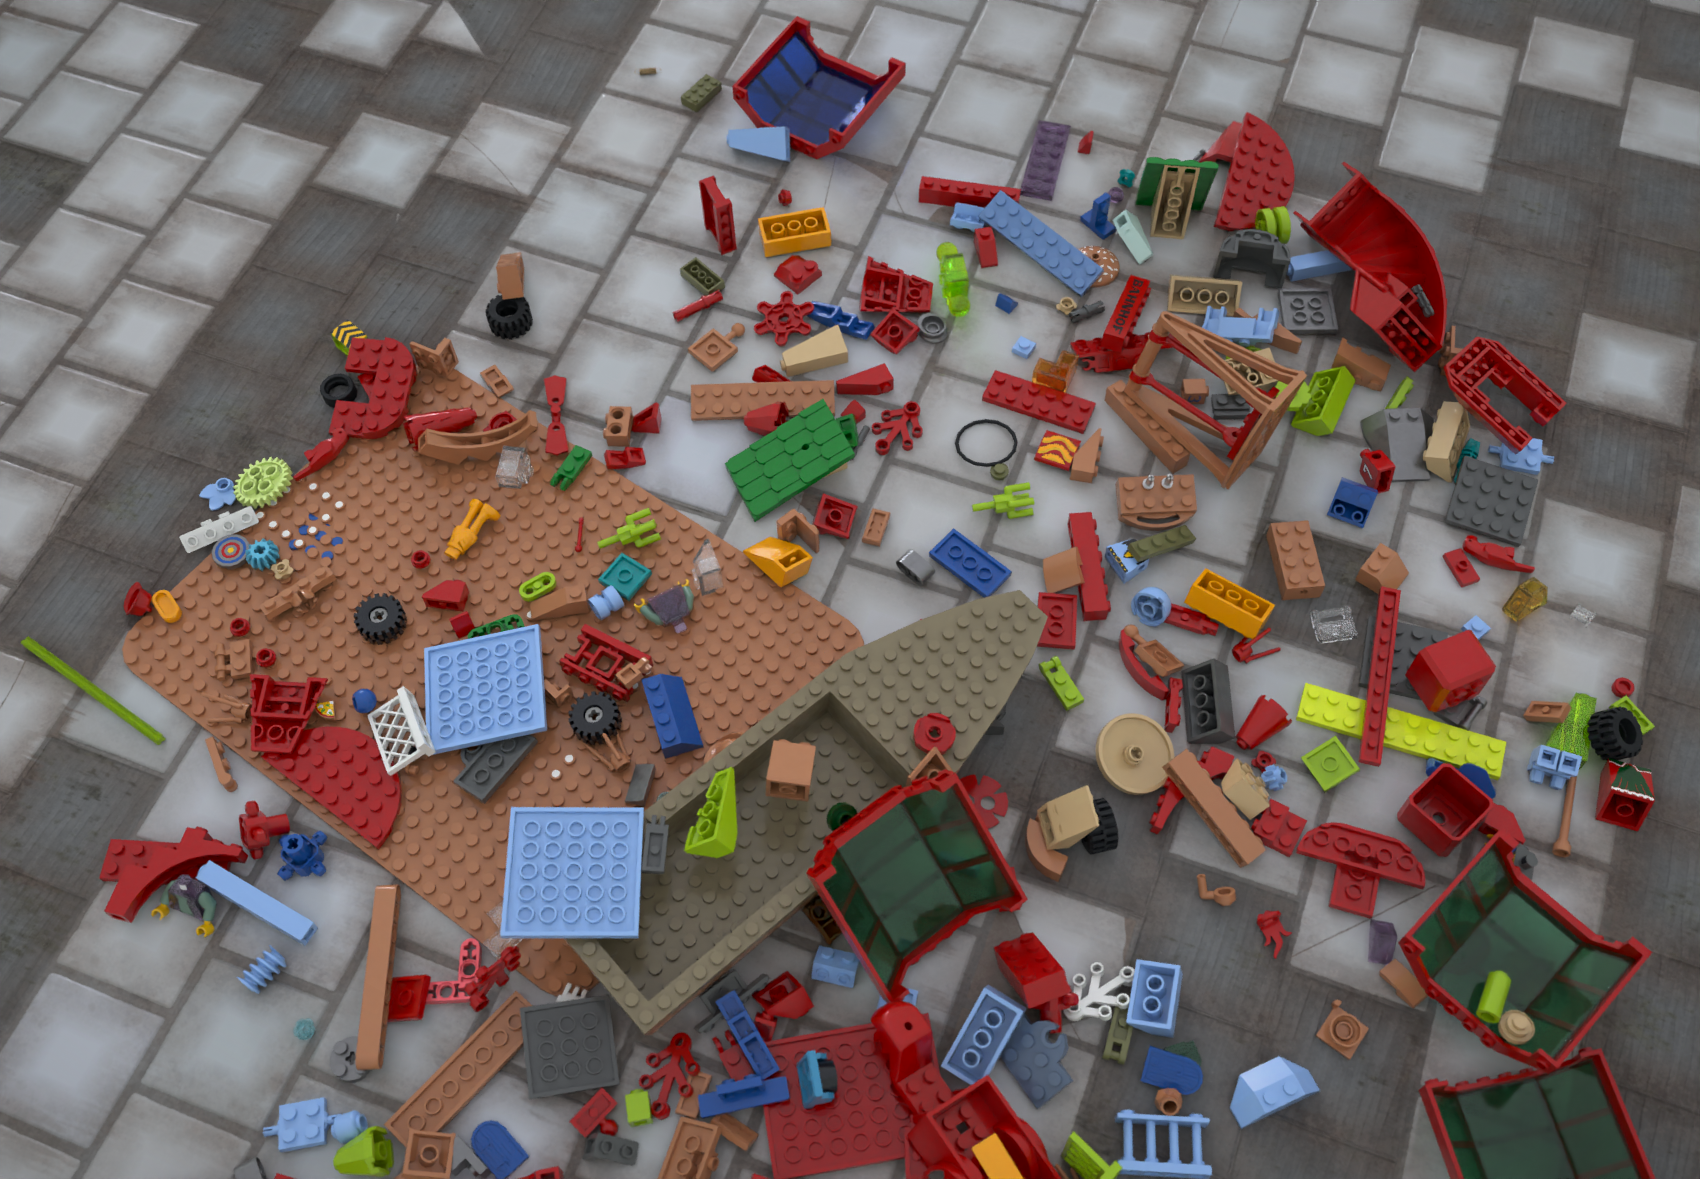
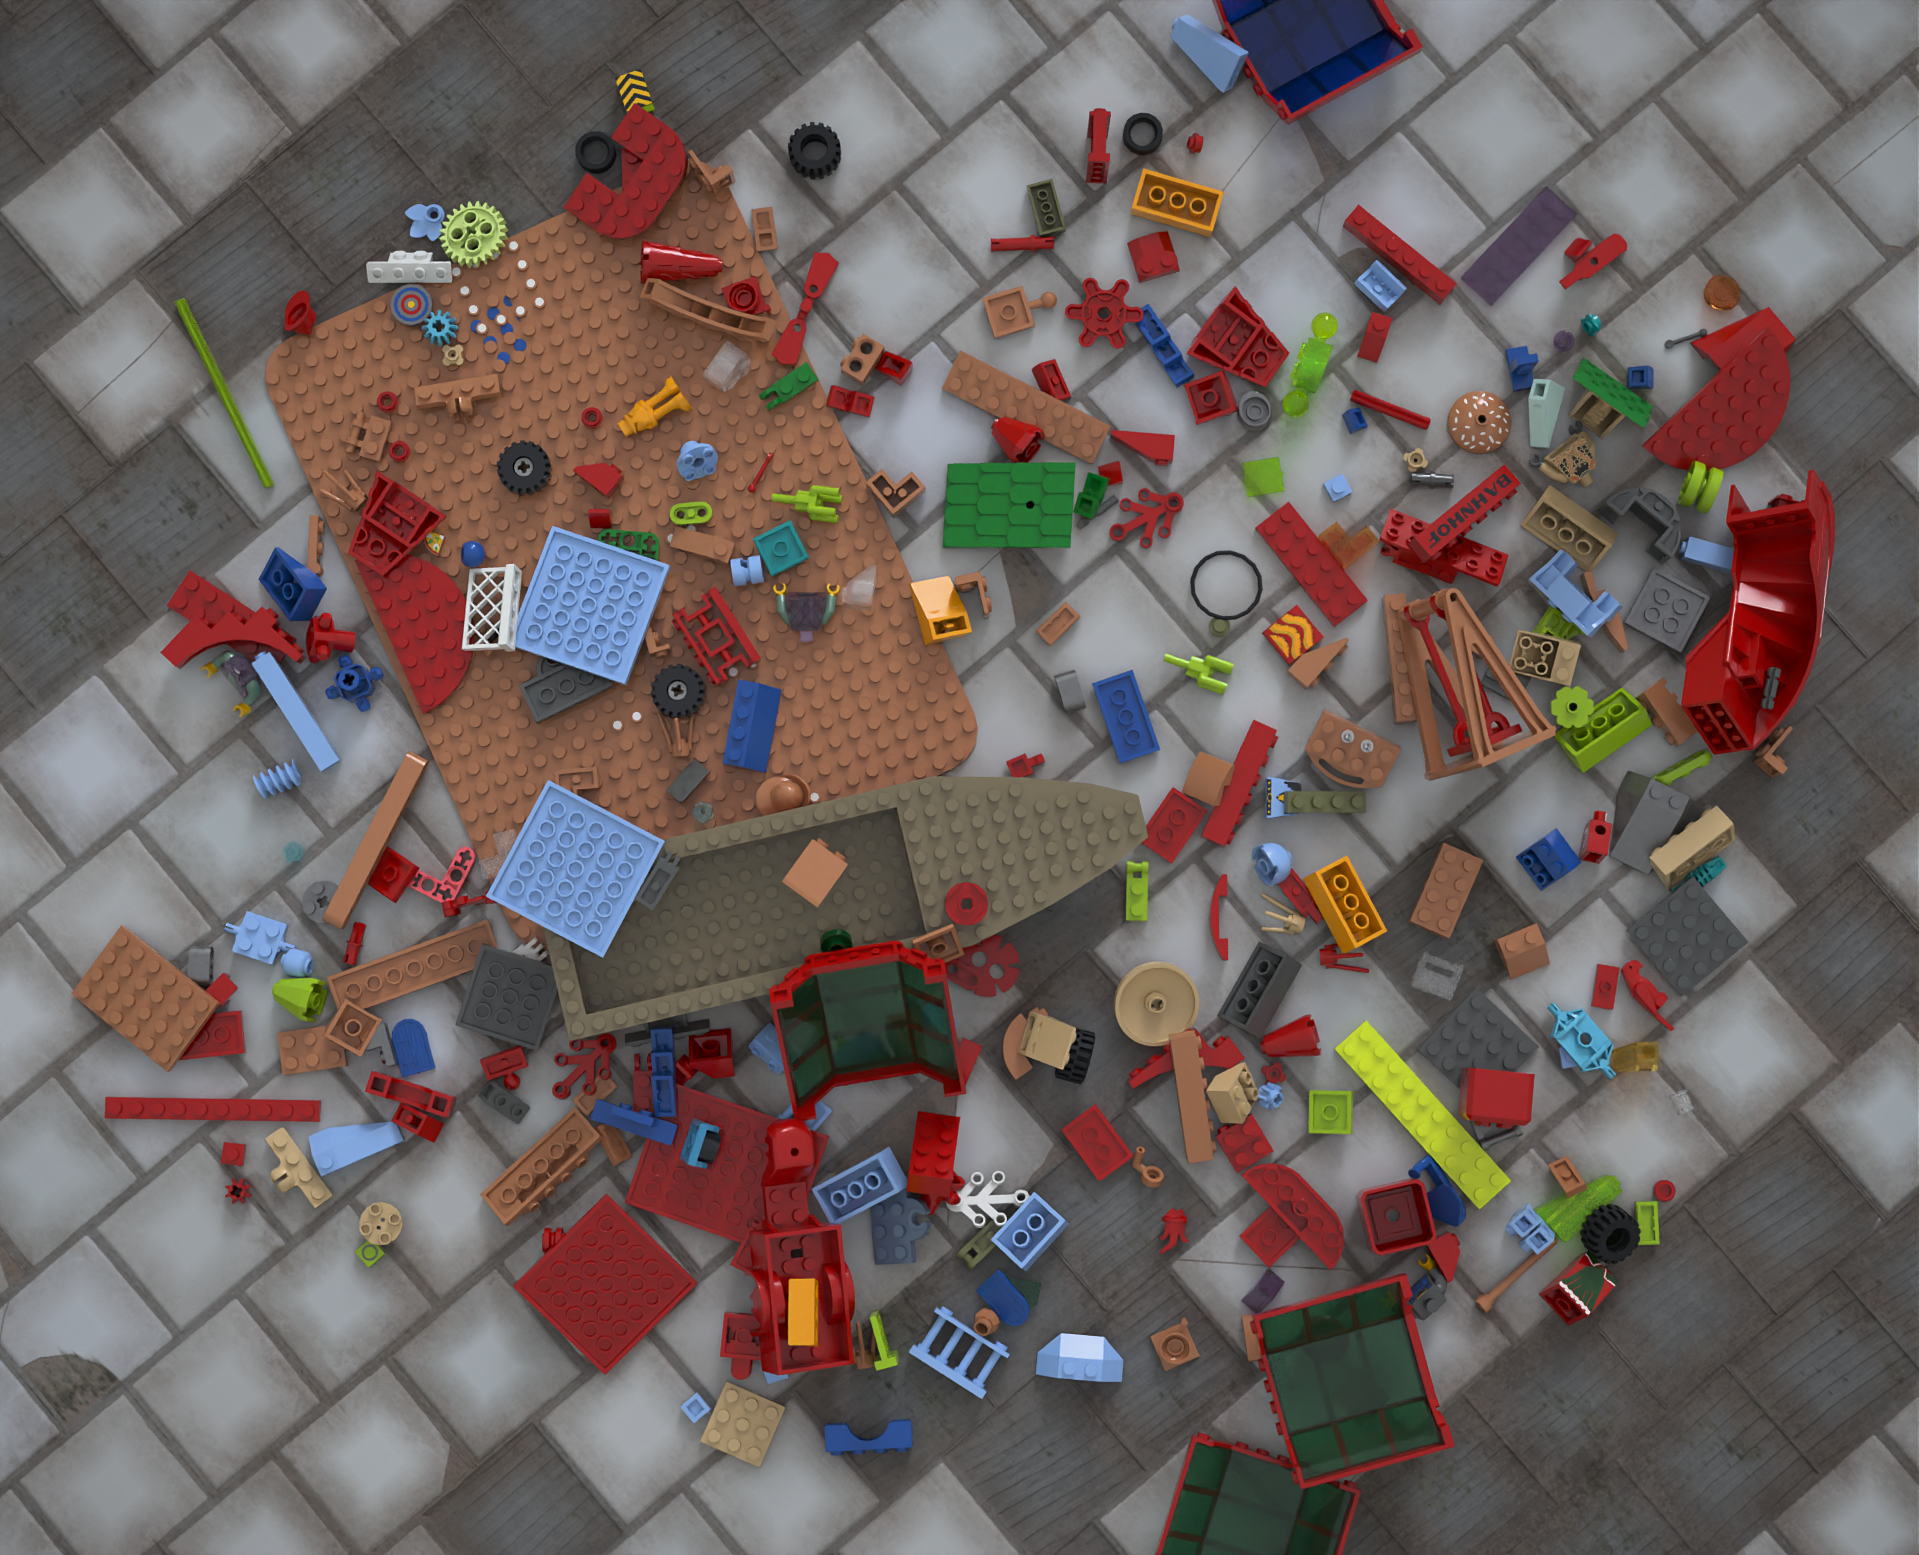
camera: 30 degrees right, 25 degrees up
(166, 606) = (326, 336): light orange tile -> none
(211, 802) = (292, 586): none -> blue slope
(323, 453) = (549, 232): red animal -> none
(398, 1080) = (354, 943): none -> red axle
(510, 275) = (838, 102): nougat wedge -> none
(523, 545) = (696, 460): none -> light blue plate
(633, 673) = (731, 669): nougat plate -> none
(638, 1108) = (543, 1080): lime brick -> none
(694, 499) = (895, 497): none -> nougat brick
(717, 822) = (721, 890): lime wedge -> none
(743, 199) = (1154, 122): none -> black tyre
(816, 353) = (1115, 378): tan slope -> none
(834, 516) = (1021, 591): red slope -> none
(965, 366) = (1263, 477): none -> clear neon green piece
(1026, 285) = (1390, 409): none -> red axle
(1041, 243) = (1434, 367): medium blue plate -> none
(1101, 143) = (1602, 254): none -> red piece
(1154, 653) = (1240, 916): nougat plate -> none
(1160, 893) = (1097, 1142): none -> red plate
(1172, 255) = (1570, 460): none -> tan torso
(1173, 703) = (1227, 971): red hinge -> none
(1197, 125) = (1722, 292): none -> clear orange piece
(1197, 641) = (1293, 922): none -> tan plant
(1379, 677) = (1437, 1054): red plate -> none
(1463, 603) = (1567, 1032): none -> medium azure plate
(1491, 359) = (1806, 798): red slope -> none
(1494, 996) = (1305, 1400): lime brick -> none
(1516, 1027) = (1305, 1434): tan plate -> none
(1526, 460) = (1761, 899): light blue plate -> none

